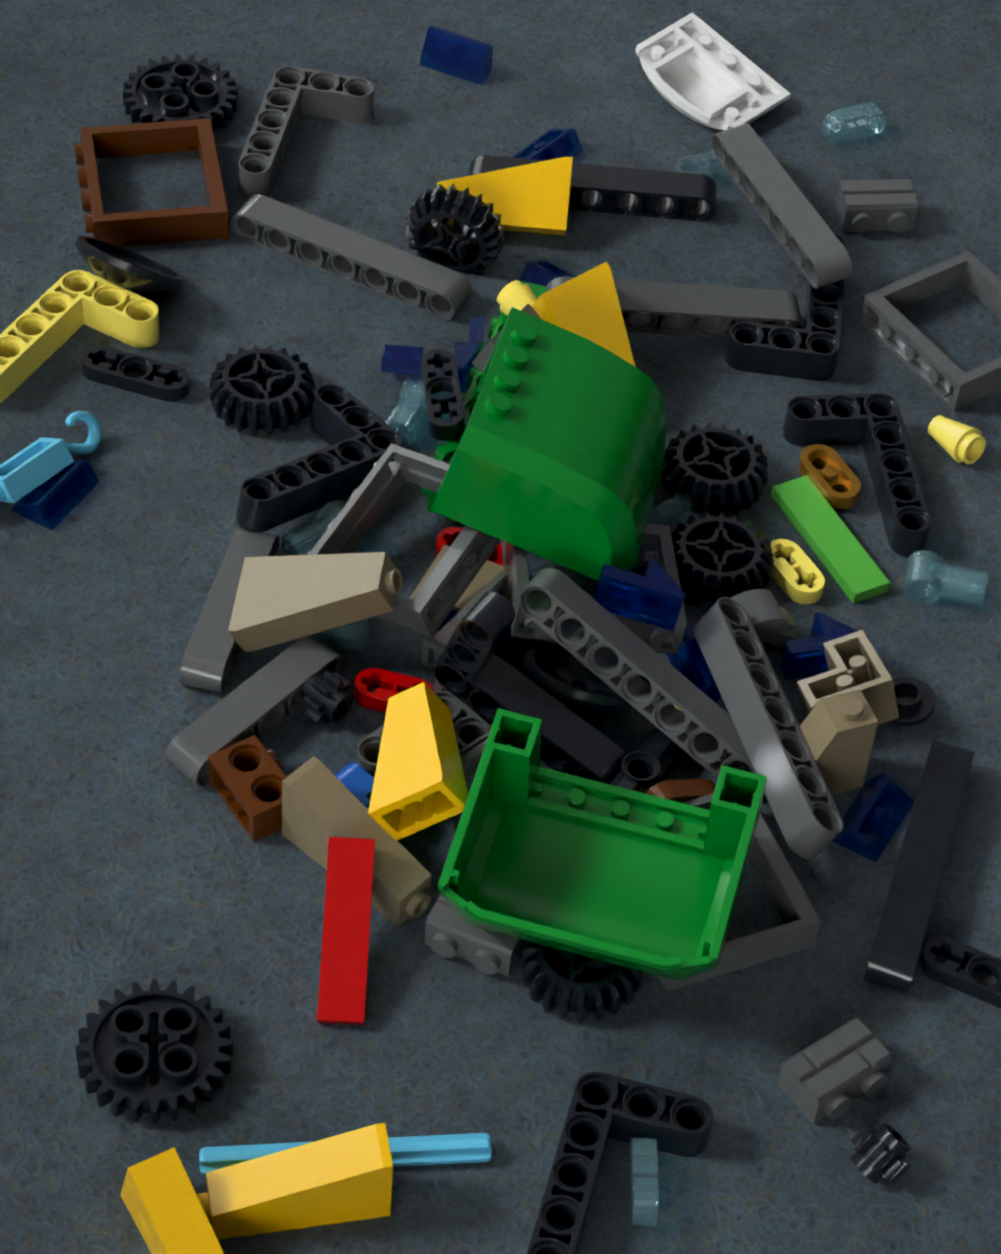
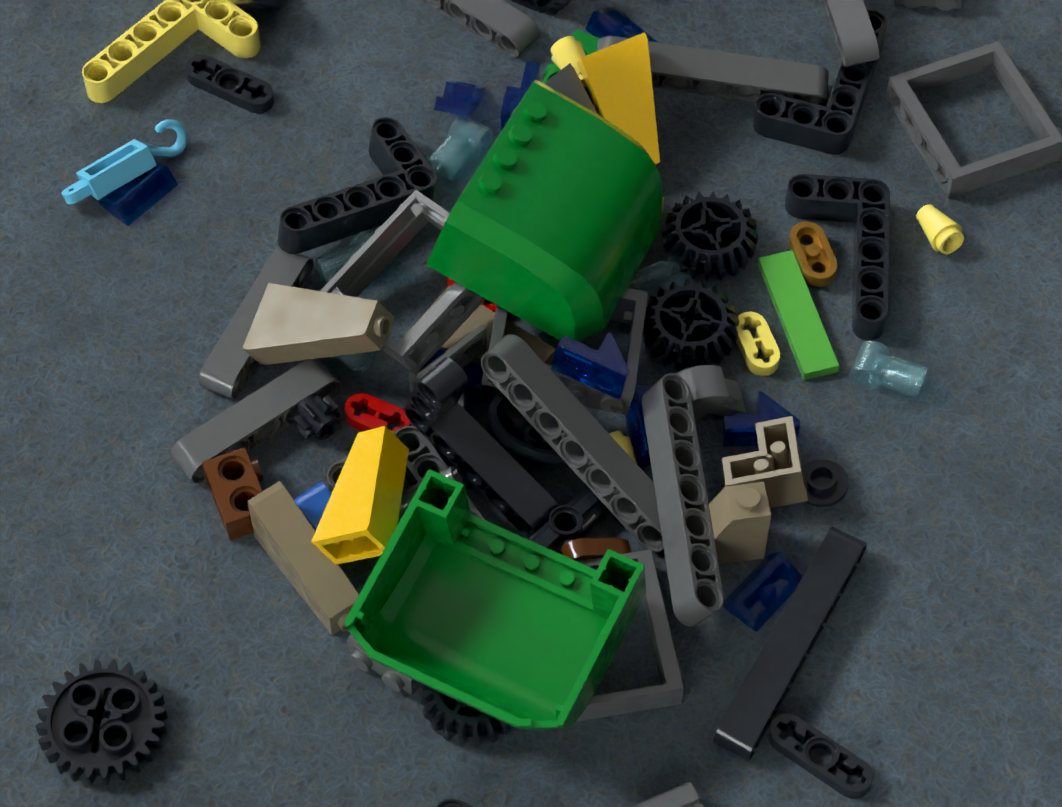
camera: 15 degrees right, 10 degrees up
(262, 389) = (313, 104): black gear -> none
(346, 931) = (278, 639): red tile -> none
(436, 406) = (475, 127): black beam -> none

